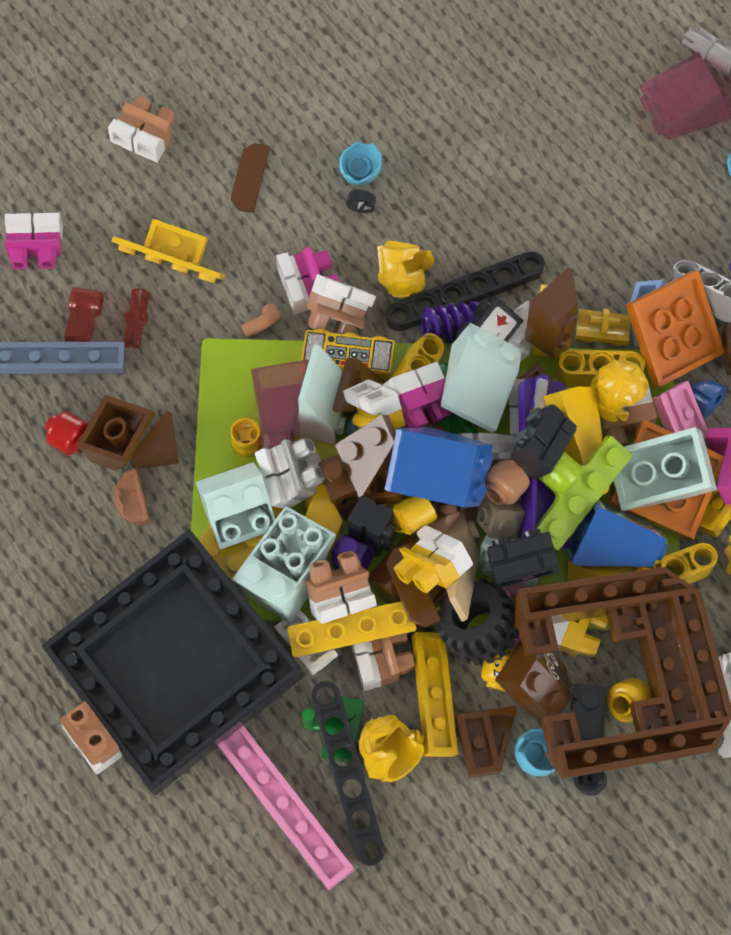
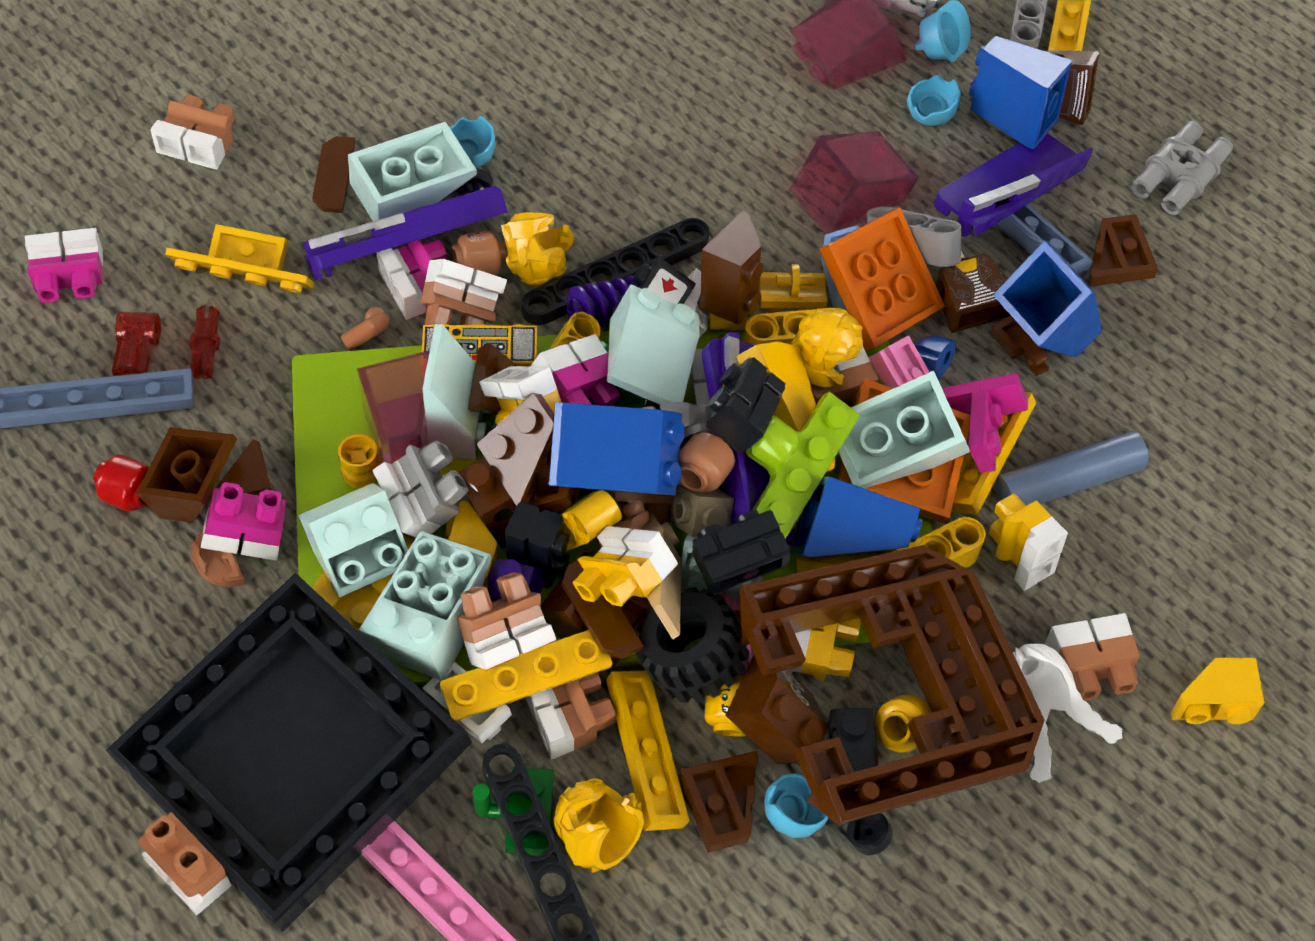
camera: 10 degrees left, 10 degrees down
(155, 474) = (237, 513): none -> dark pink hips
(297, 242) = (402, 229): none -> dark purple piece
(310, 189) = (409, 171): none -> light aqua slope
(357, 267) = (480, 252): none -> nougat head
(668, 231) = (849, 177): none -> clear pink slope

